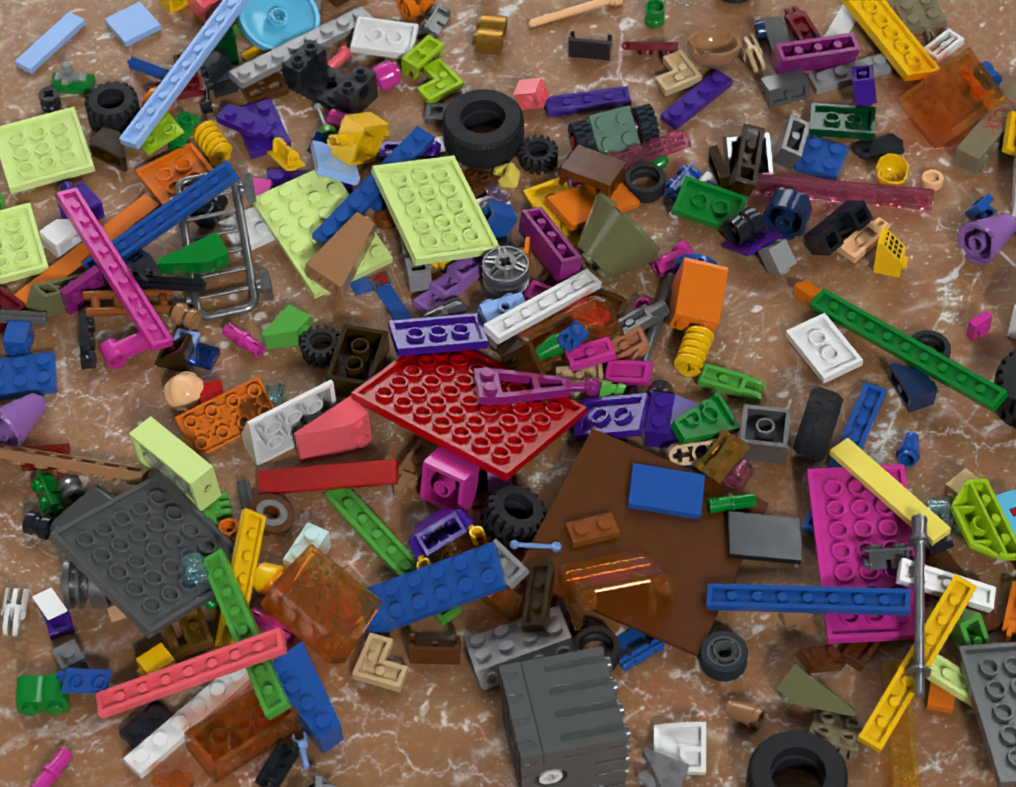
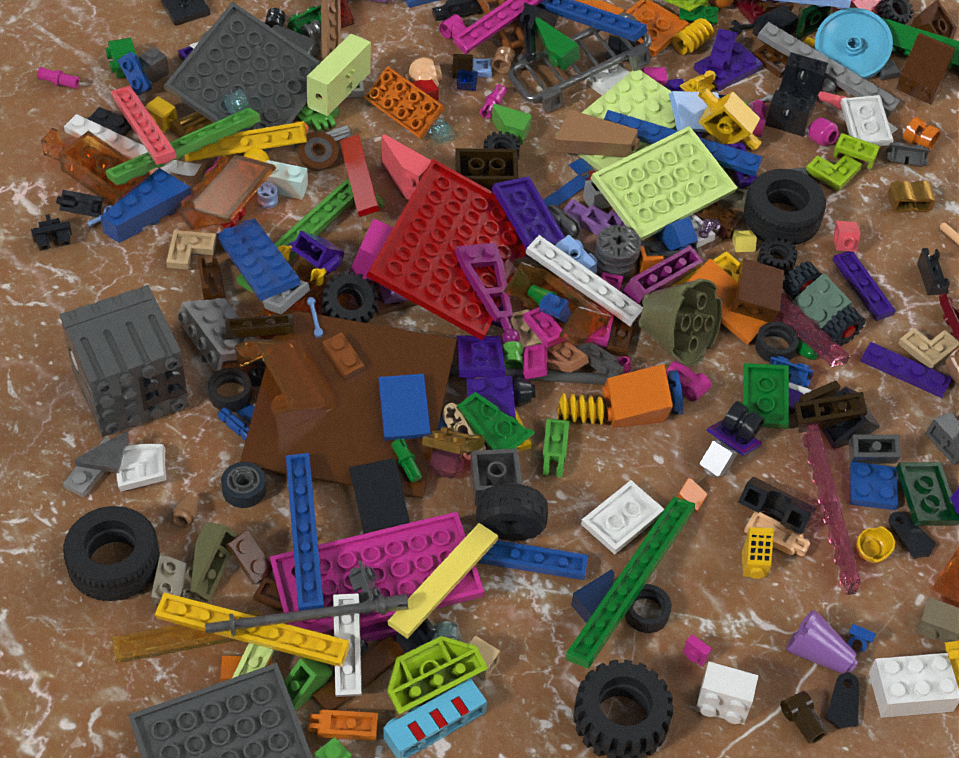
camera: 70 degrees right, 0 degrees up
(14, 611) = (192, 25): white arm -> none
(275, 429) = (394, 124): white slope -> none
(788, 212) = (776, 457): dark blue brick -> none
(908, 451) = (519, 605): blue cone -> none
(932, 179) = (886, 589): light nougat tile -> none

